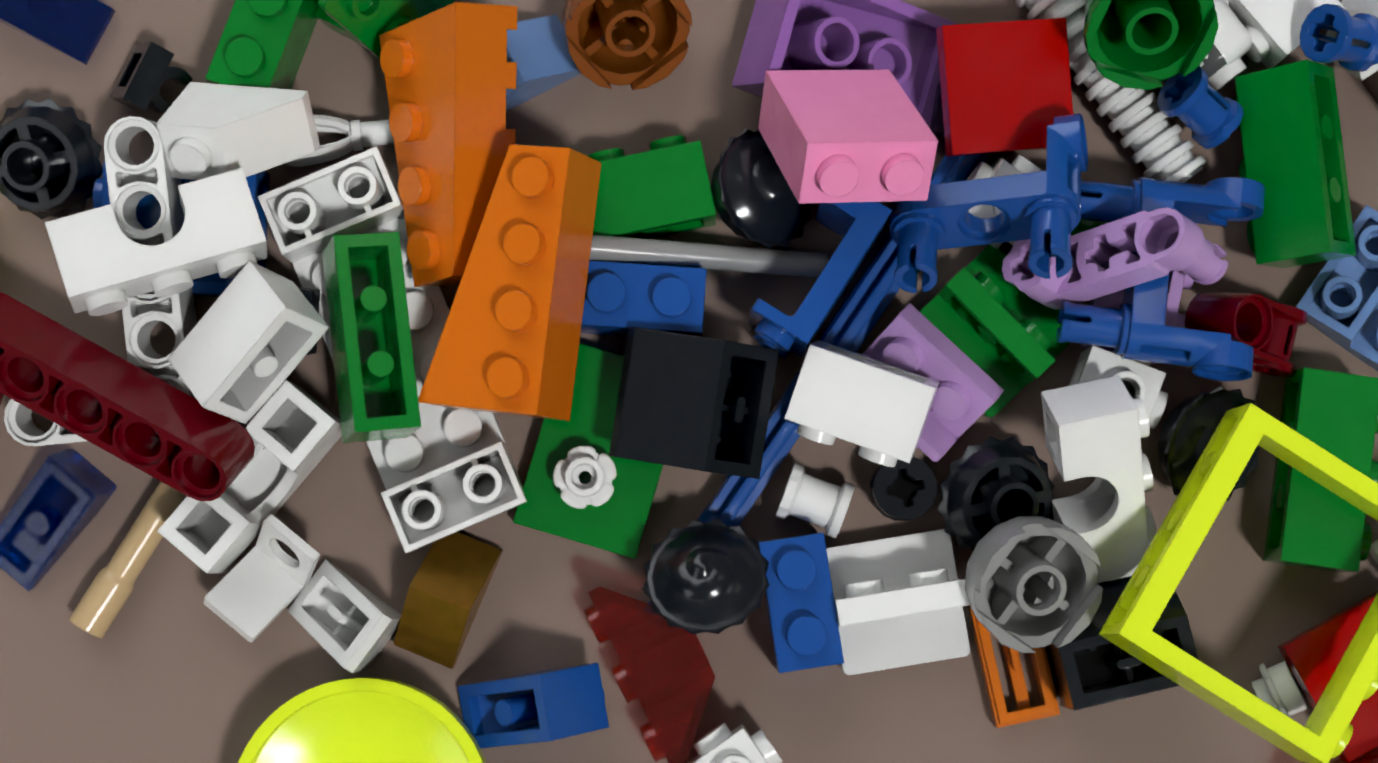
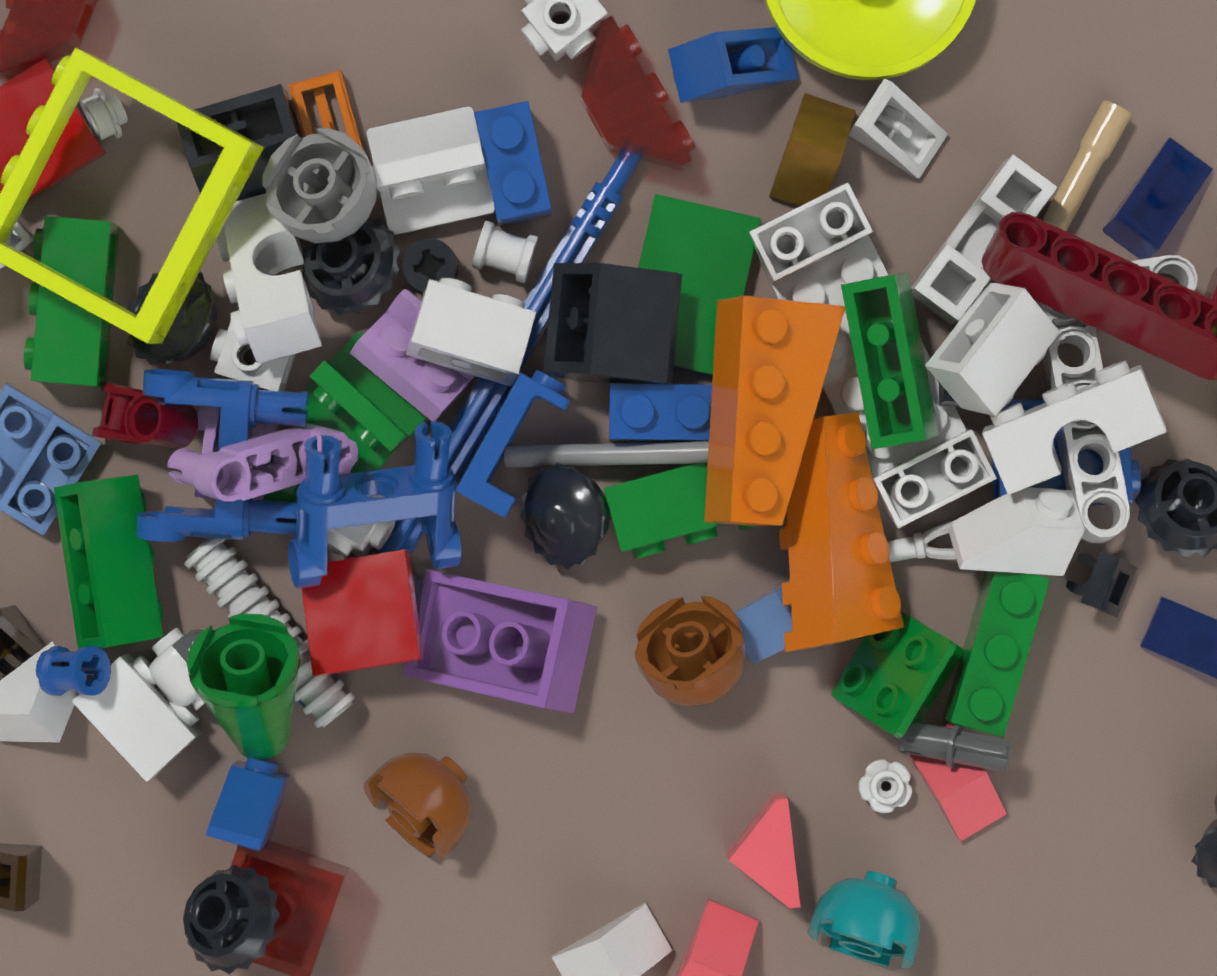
camera: 170 degrees right, 5 degrees up
(263, 581) = (969, 155): white bracket -> none
(602, 474) = (690, 268): white plate -> none
(705, 577) = (594, 177): black piece -> none
(846, 136) = (497, 552): bright pink brick -> none
(1200, 108) = (191, 605): blue bush -> none

